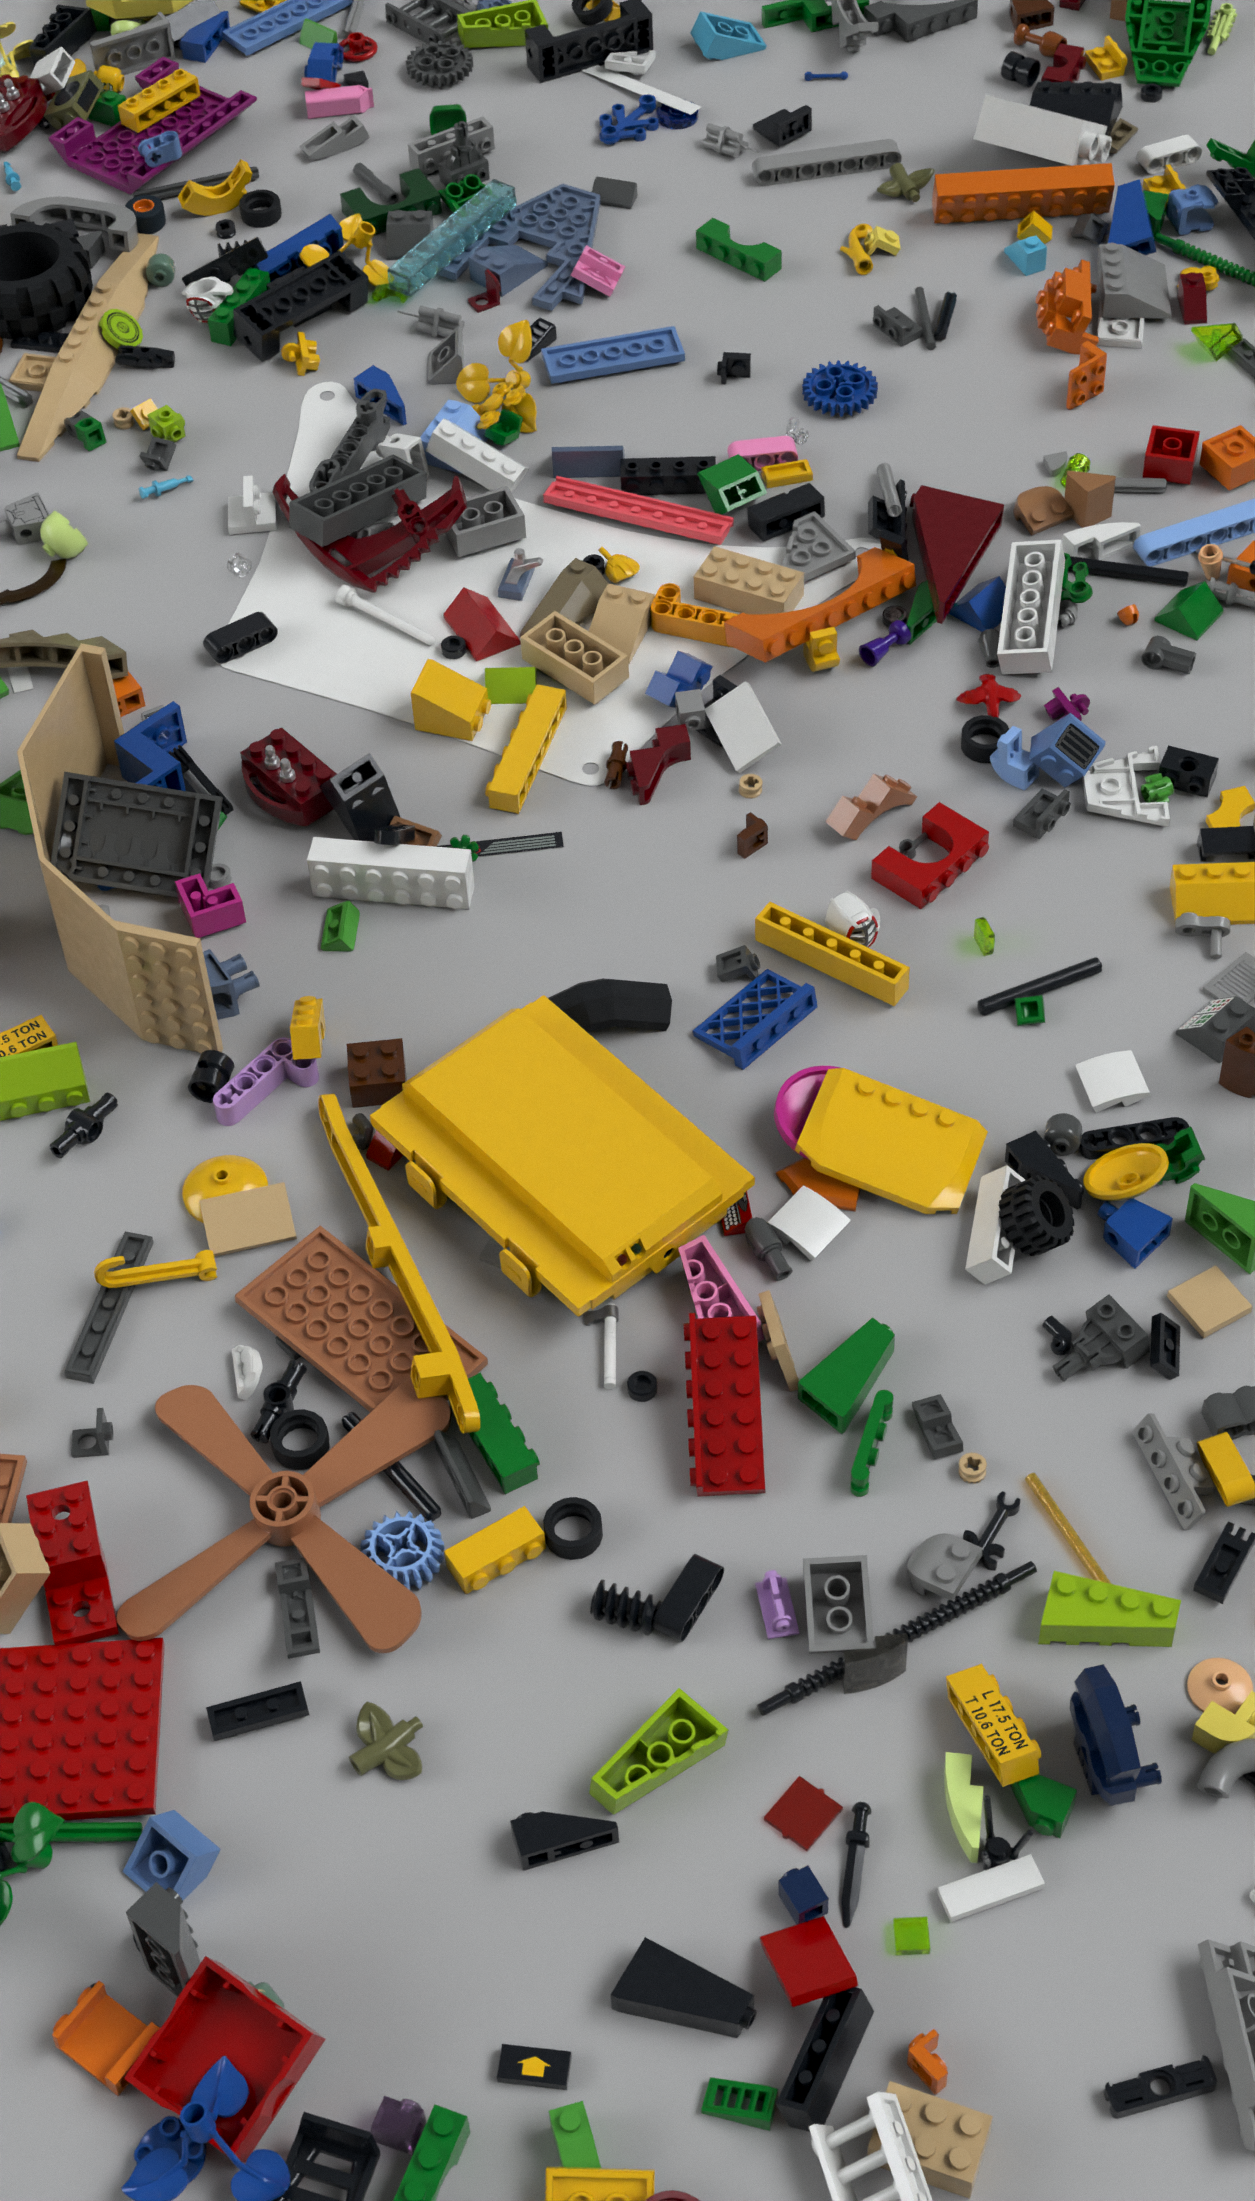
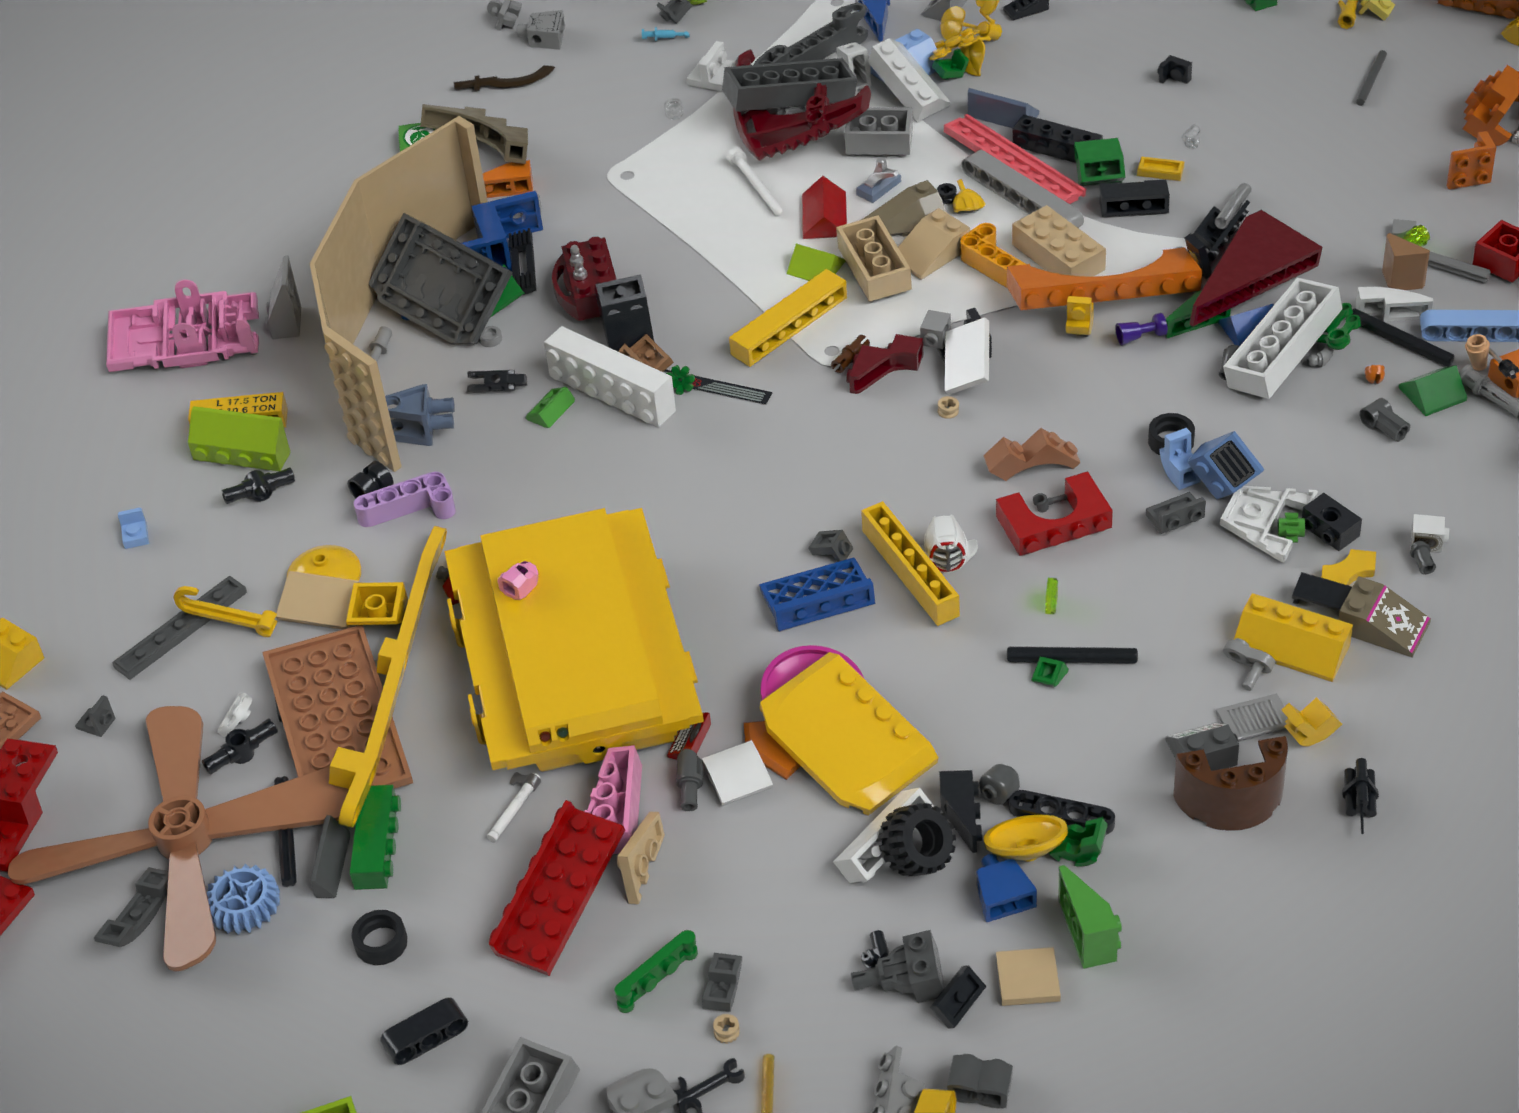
camera: 30 degrees right, 5 degrees down
(60, 537) = (556, 48): yellowish green cylinder -> none
(209, 910) = (458, 355): dark pink brick -> none
(240, 637) = (634, 162): black beam -> none
(257, 1711) = (55, 973): black plate -> none
(274, 913) = (507, 382): none -> black hinge
(297, 1420) = (228, 767): black tyre -> none
(307, 1028) = (460, 467): yellow arch -> none
(322, 1199) = (377, 603): none -> yellow slope
(375, 1071) = (489, 515): reddish brown brick -> none
(386, 1744) = (124, 1041): olive plant -> none
(394, 834) = (625, 345): black beam -> none
(448, 702) = (749, 260): yellow slope -> none
(453, 647) = (791, 221): black tile -> none
(490, 1113) = (519, 580): none -> bright pink rock
(495, 1550) = (308, 928): yellow brick -> none
(613, 354) = (1082, 33): medium blue plate -> none
(616, 1004) = (702, 538): black piece -> none
(623, 1608) = (367, 1014): black piece -> none
(642, 1386) = (515, 849): black tile -> none
(661, 537) = (1016, 187): none -> light grey beam
(683, 675) = (954, 299): blue brick -> none
(753, 836) = (917, 448): reddish brown bracket -> none
(765, 451) = (1149, 144): bright pink beam -> none
(776, 1606) = (488, 1069): lavender hinge -> none
(815, 547) = (1136, 235): light grey plate -> none
(840, 388) = (1253, 113): blue gear -> none
(847, 1375) = (680, 906): green slope -> none
(894, 613) = (1166, 308): tile -> none
(896, 325) = (1341, 76): dark grey bracket -> none
(945, 316) = (1389, 80): black axle -> none
(990, 694) = (1200, 399): red animal -> none
(1028, 255) = (1499, 50): medium azure slope -> none
(1041, 509) = (1359, 262): medium nougat slope -> none
(1061, 704) = (1263, 435): magenta hips -> none
(1113, 1080) = (1077, 756): white slope -> none

